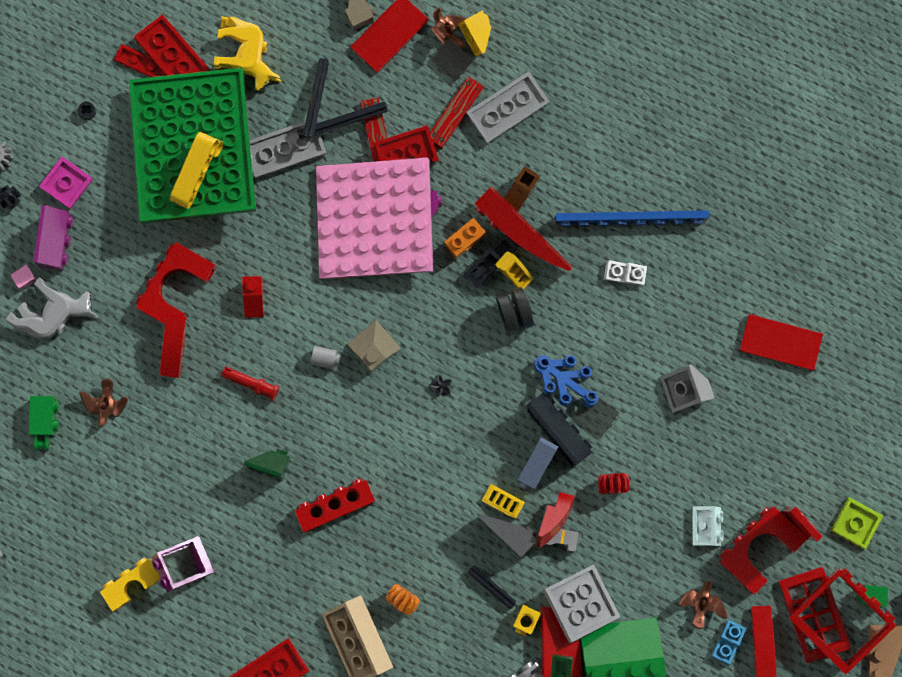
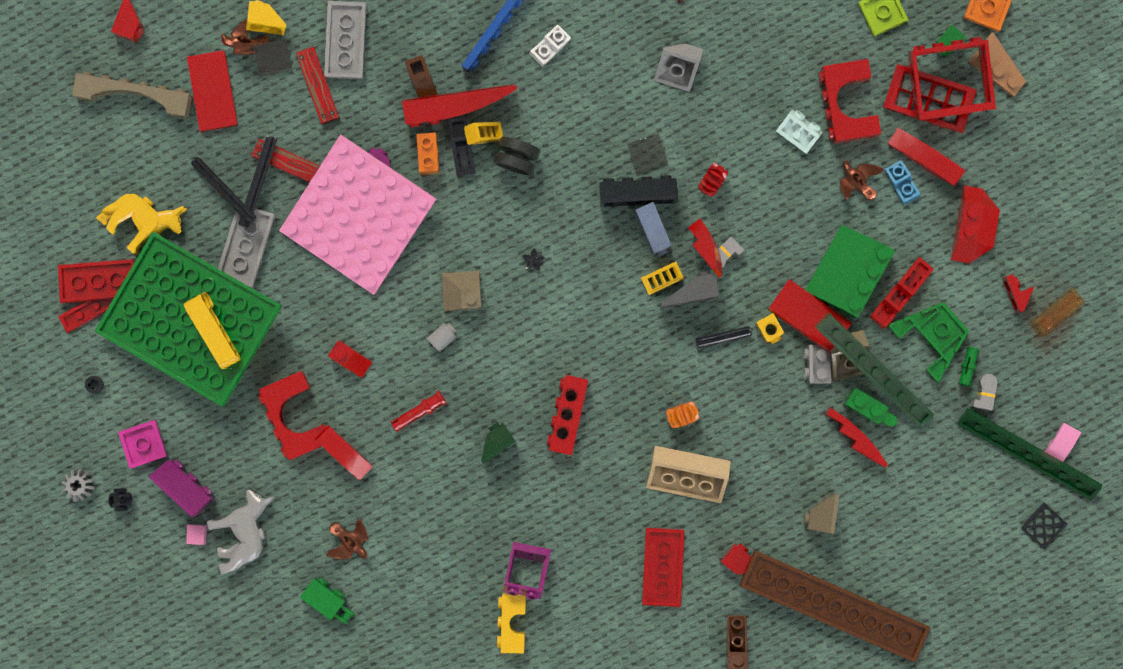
camera: 50 degrees left, 5 degrees up
(407, 145) = (317, 144): red wing -> none
(564, 379) = (600, 157): blue plant -> none
(581, 603) = (788, 275): light grey plate -> none
(802, 523) = (855, 53): red tile -> none

